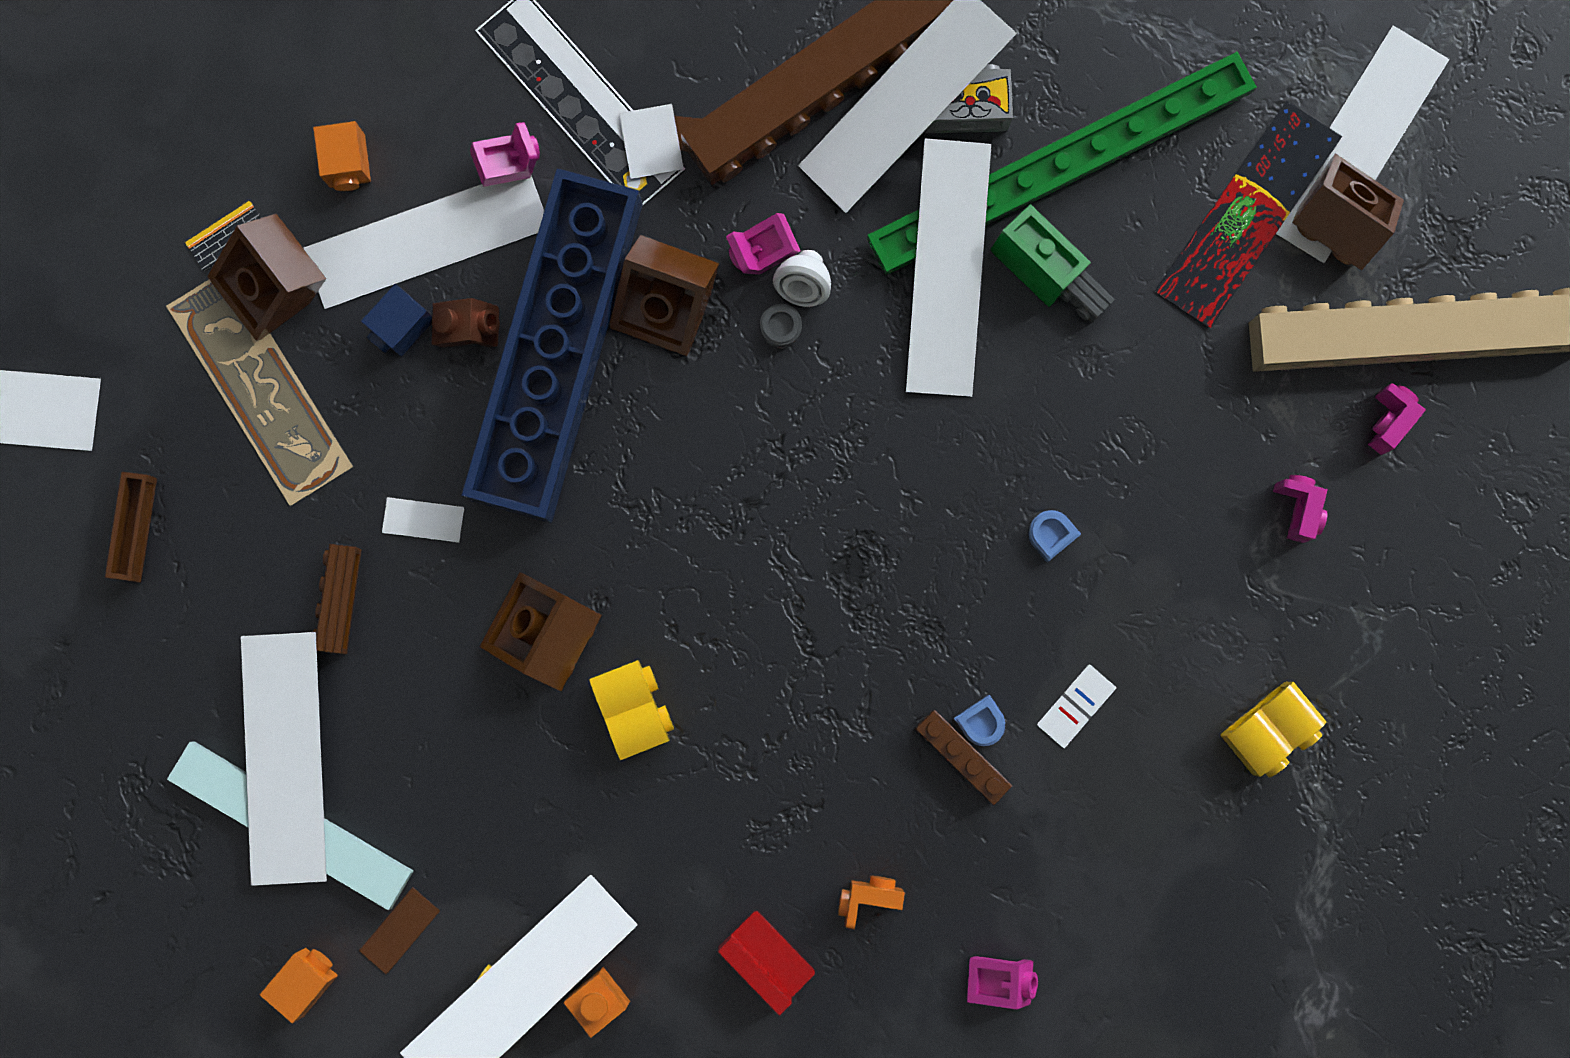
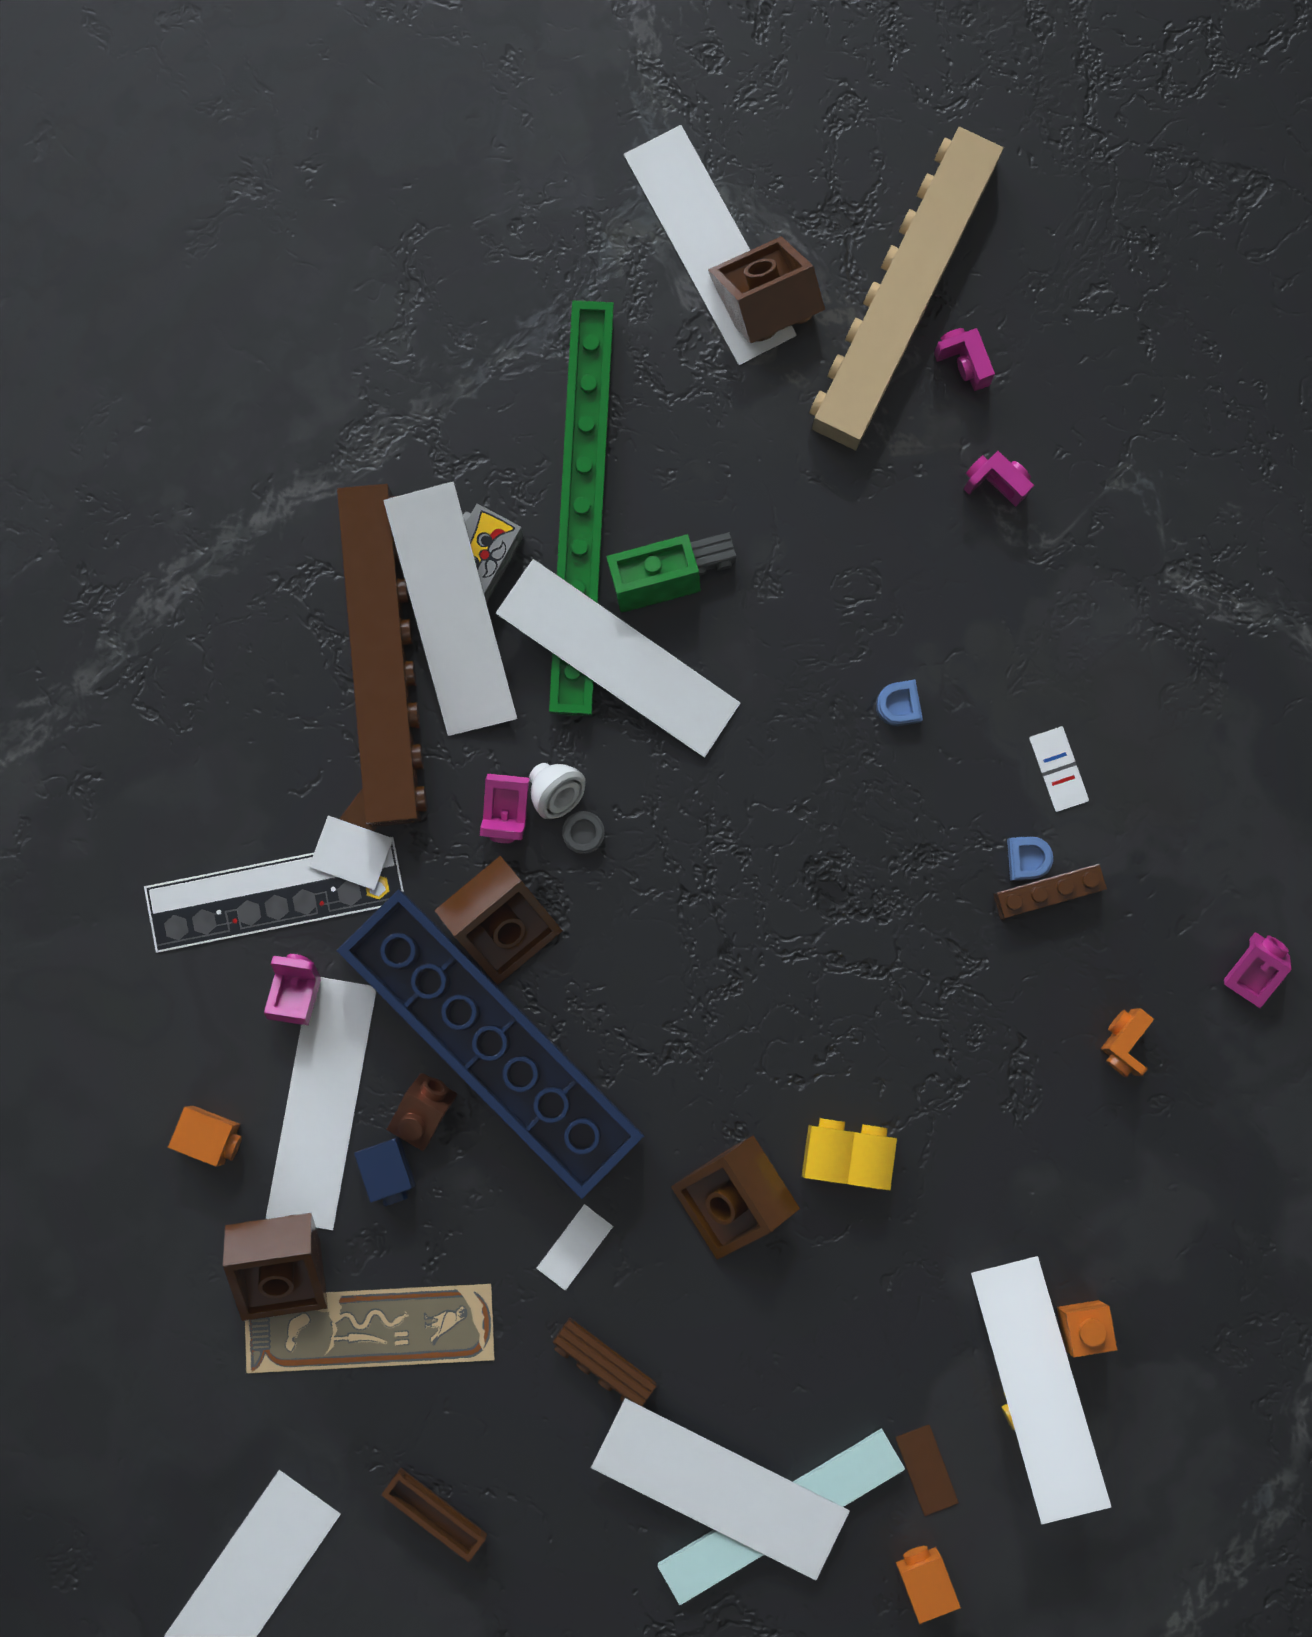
camera: 60 degrees left, 0 degrees up
(211, 241) = (212, 1287): sticker -> none
(766, 961) = (1131, 1161): red panel -> none
(1248, 214) = (717, 373): black sticker -> none
(1274, 730) = (1174, 614): yellow brick -> none

